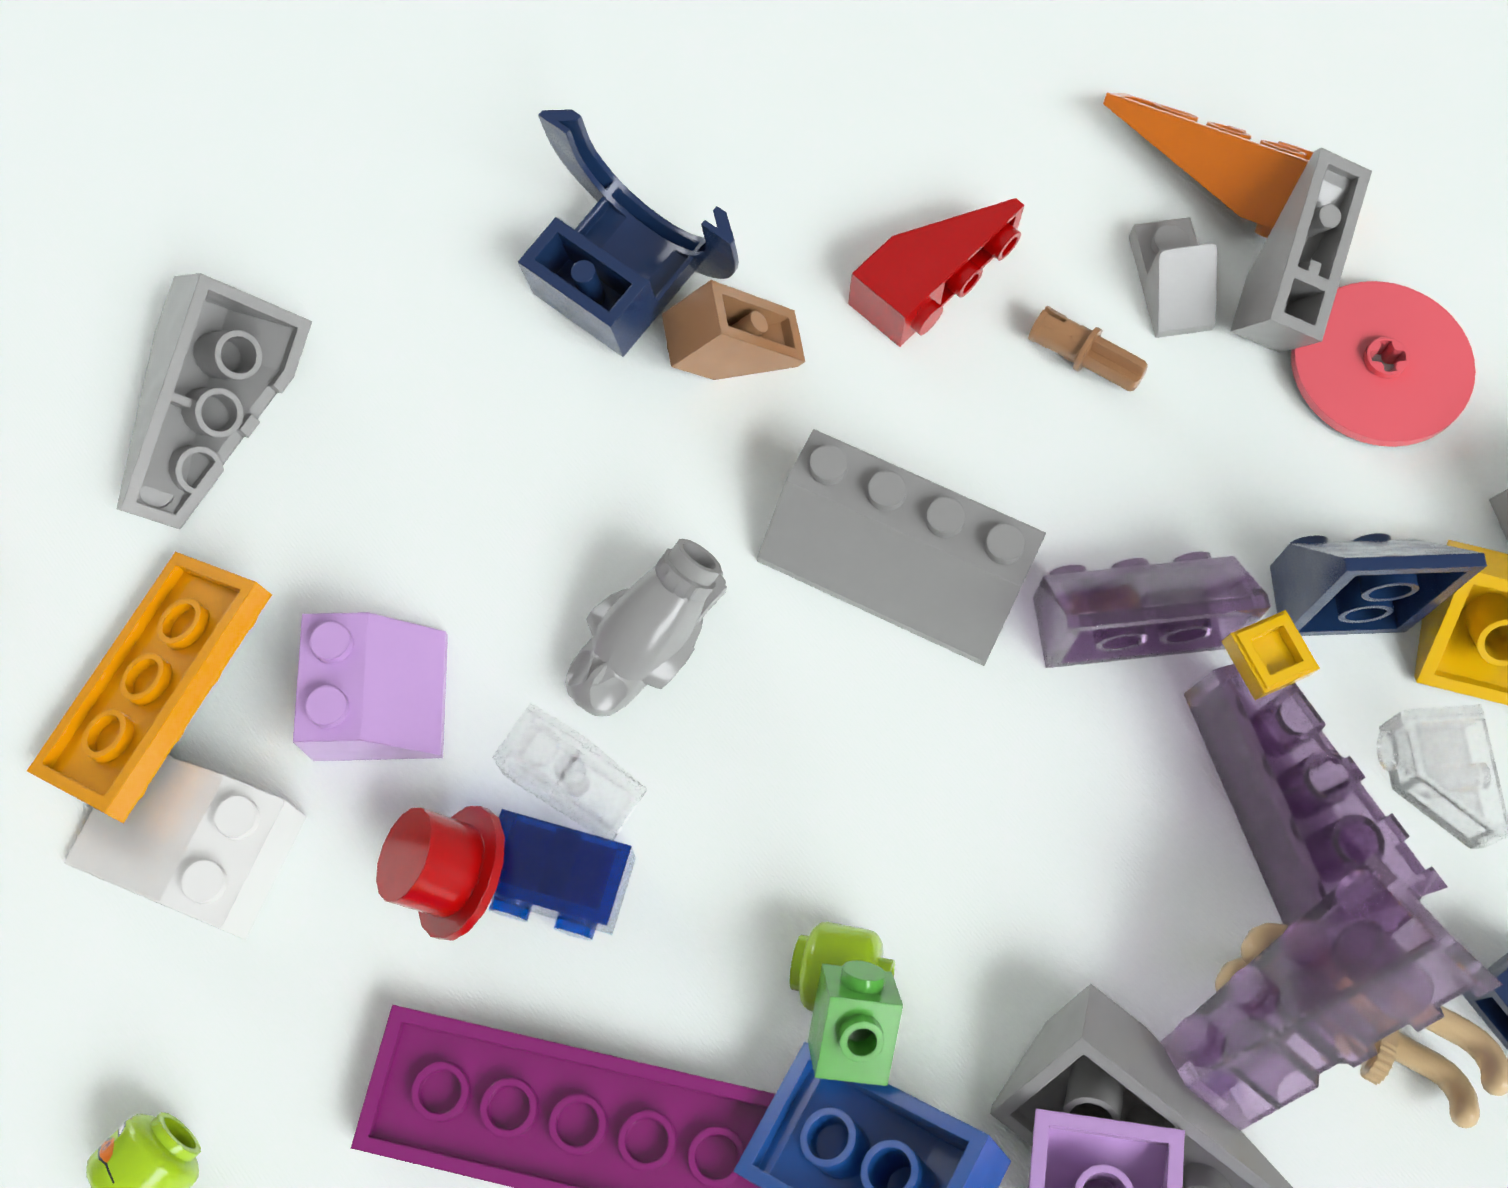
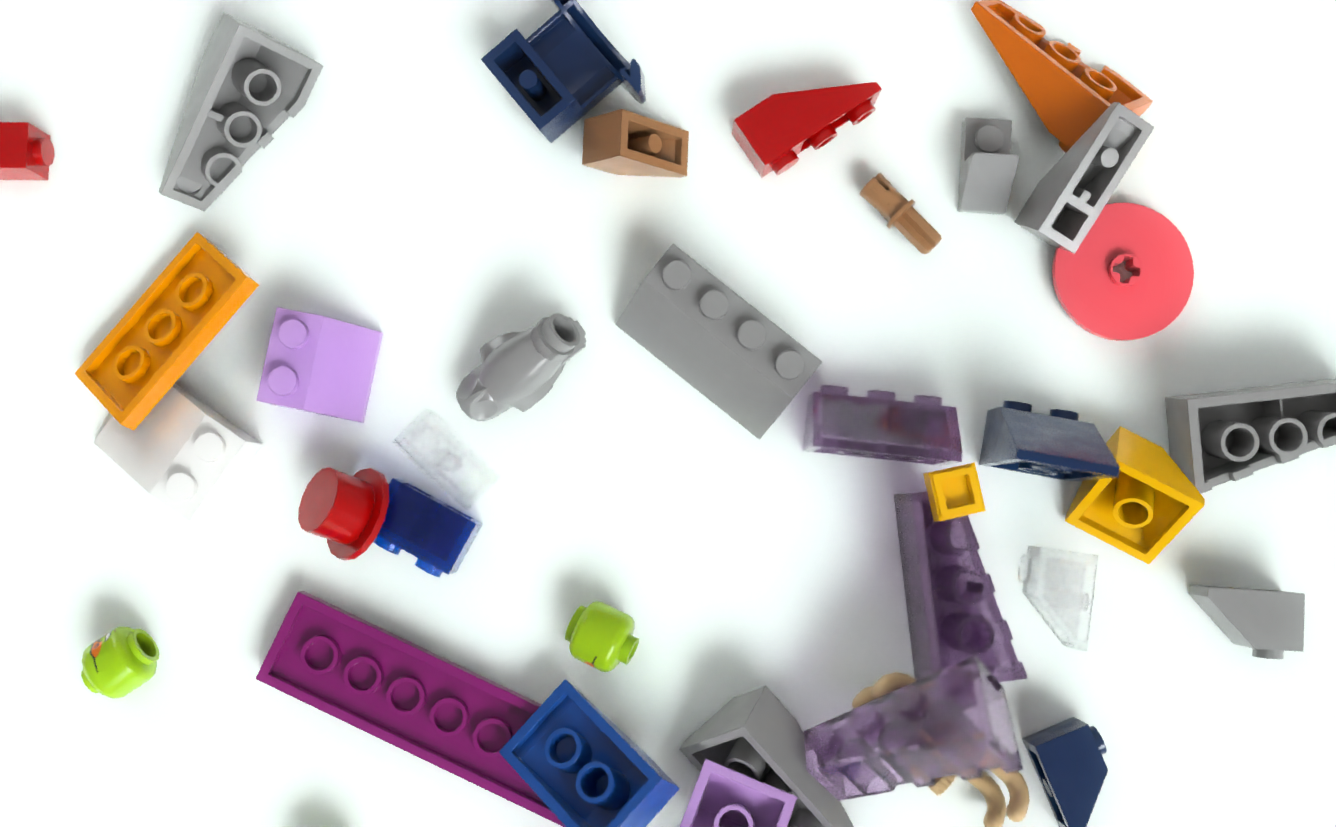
camera: 15 degrees right, 15 degrees up
(855, 1023) = (596, 681): bright green brick -> none

